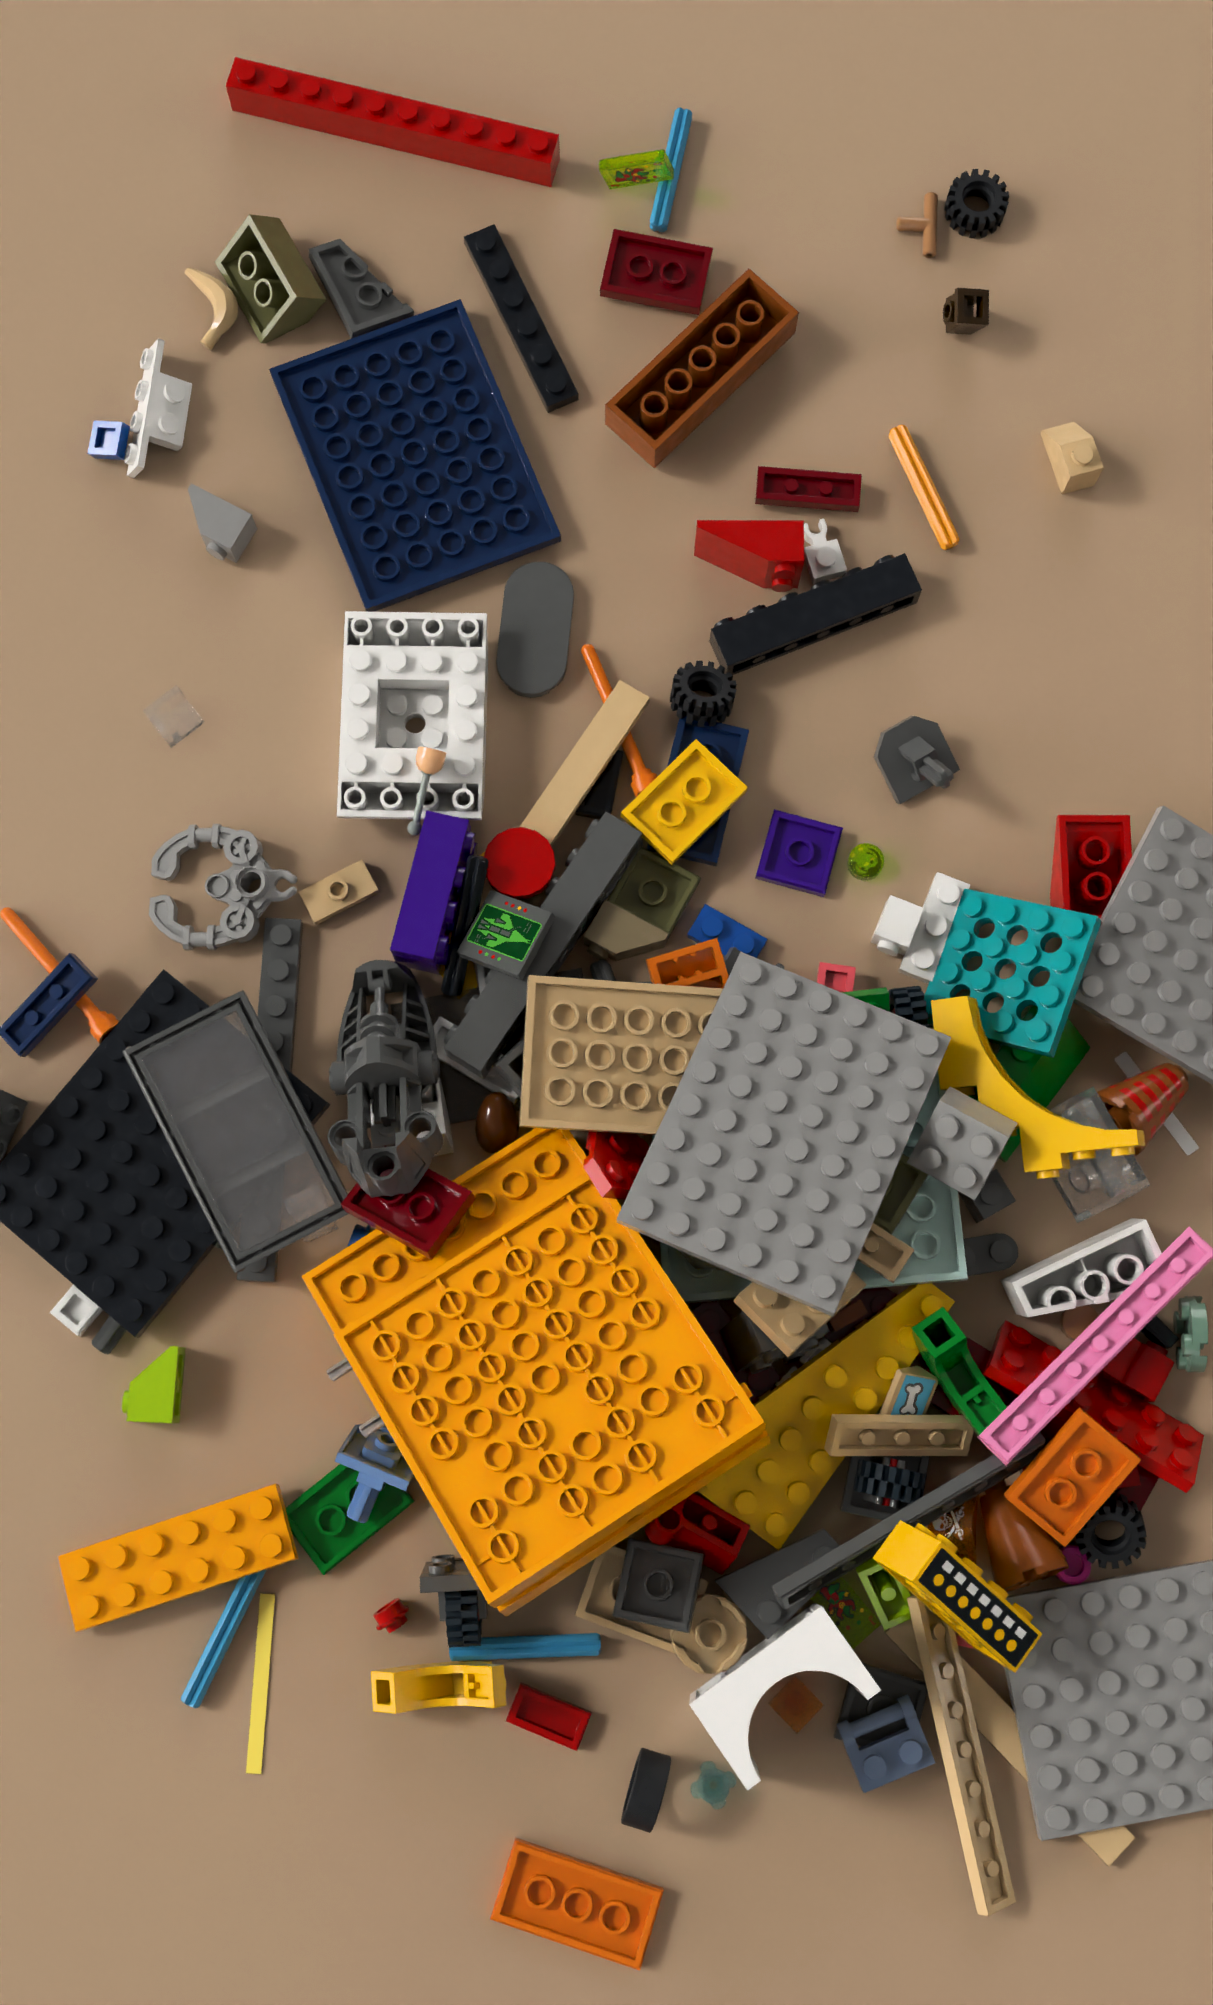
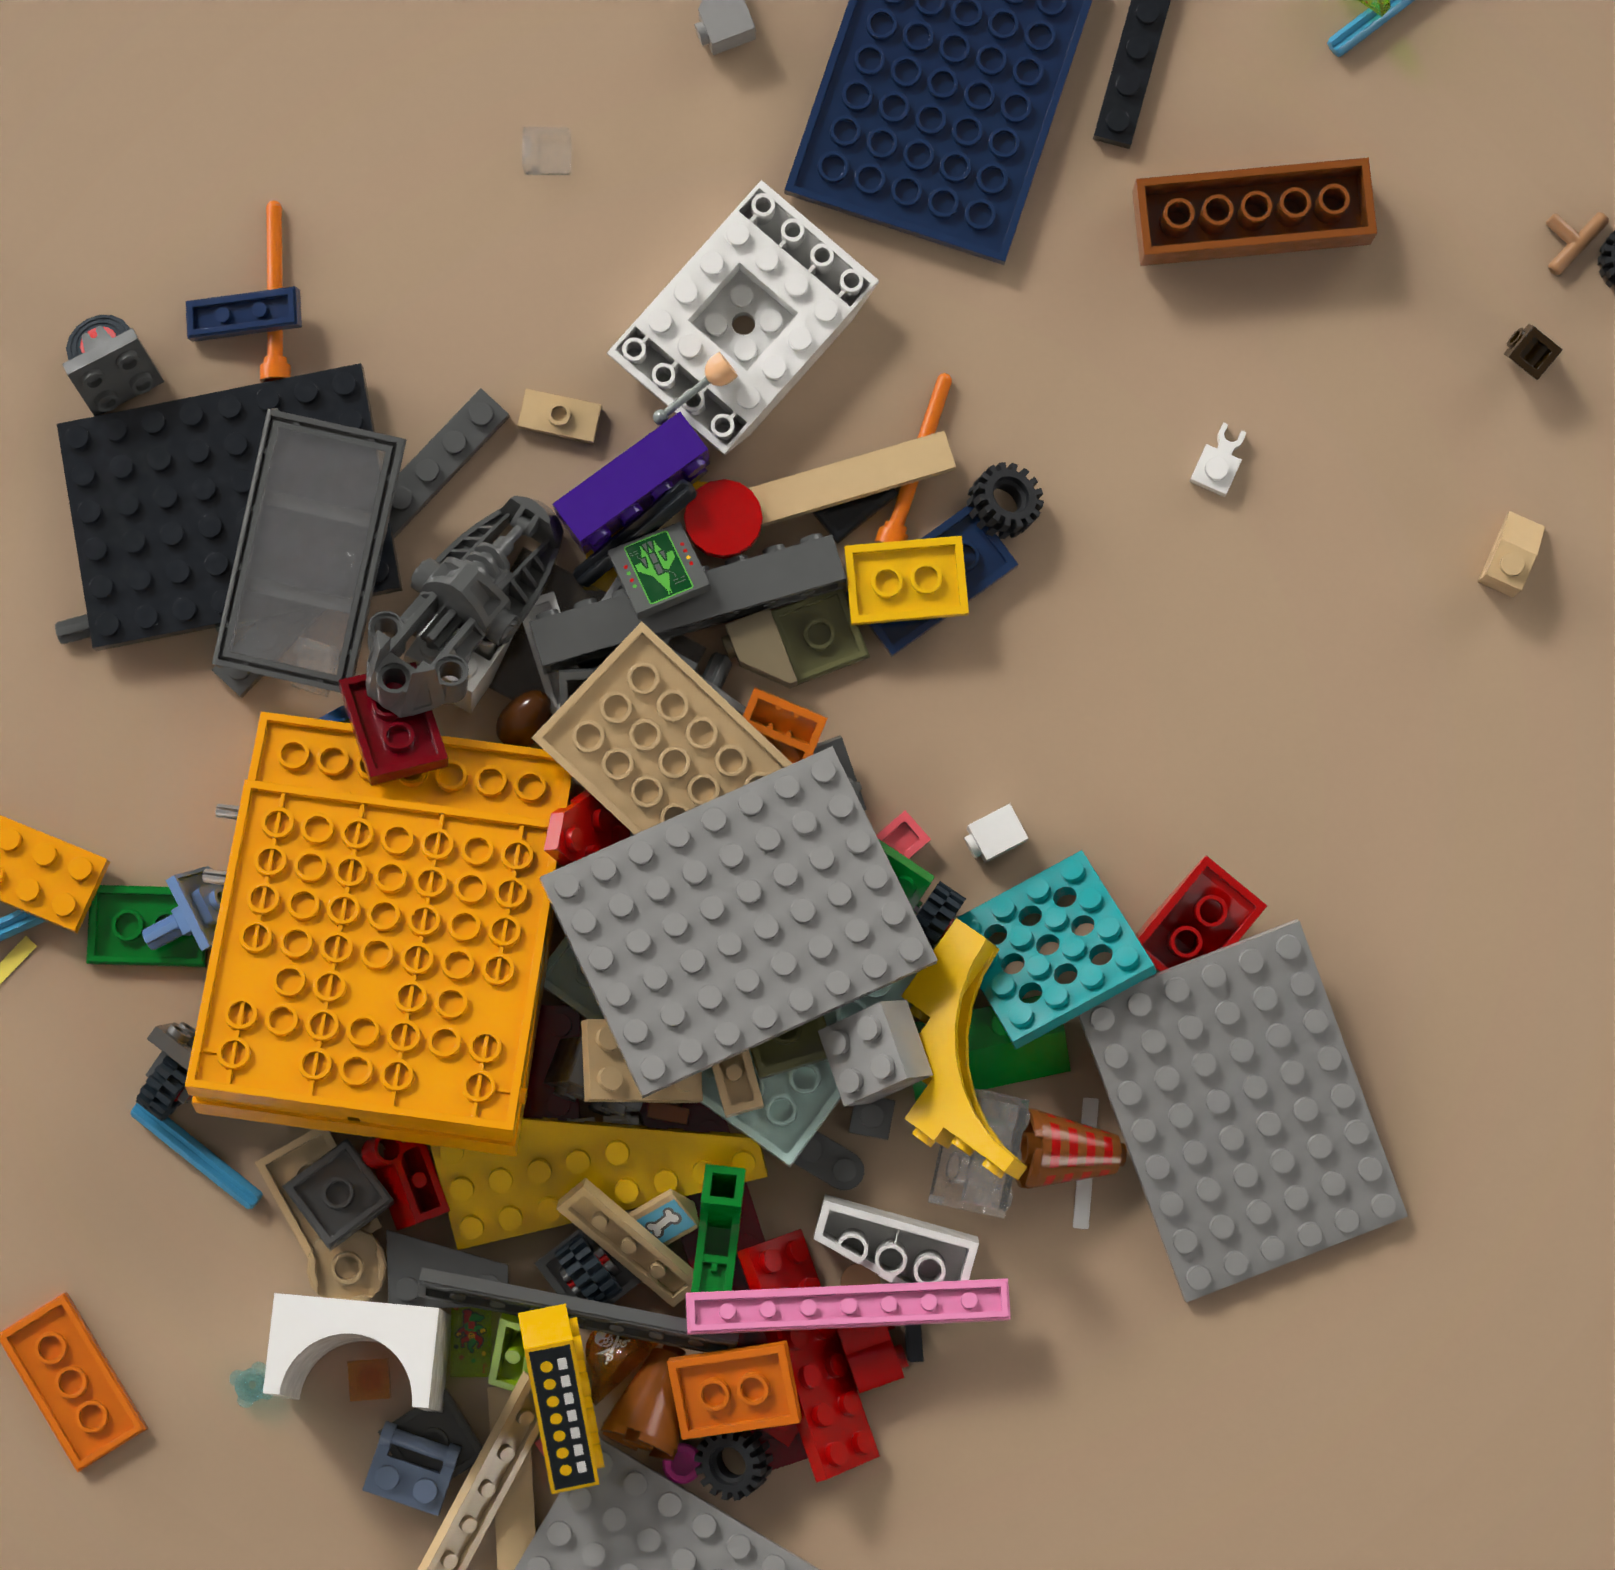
camera: 40 degrees right, 5 degrees up
(76, 1311) = (64, 587): white tile -> none
(157, 1390) = (76, 706): lime slope -> none
(231, 886) = (456, 372): light grey piece -> none
(391, 1615) = (112, 1040): red plate -> none
(438, 1685) = (102, 1124): yellow arch -> none
(535, 629) = (915, 325): dark grey tile -> none
(548, 1716) = (169, 1223): red tile -> none
(646, 1790) = (195, 1340): black tyre -> none
(656, 272) = (1294, 89): dark red plate -> none
(730, 933) = (849, 720): blue plate -> none
(756, 550) = (1161, 419): red slope -> none
(799, 853) = (971, 703): dark purple tile -> none
(808, 489) = (1256, 395): dark red plate -> none
(815, 614) = (1163, 510): black brick -> none
(865, 862) = (1020, 758): clear neon green tile -> none
(914, 758) = (1137, 705): dark grey piece -> none
(924, 487) = (1359, 476): light orange axle -> none
(933, 928) = (1027, 860): white plate -> none
(1193, 1326) = (930, 1374): sand green plate -> none

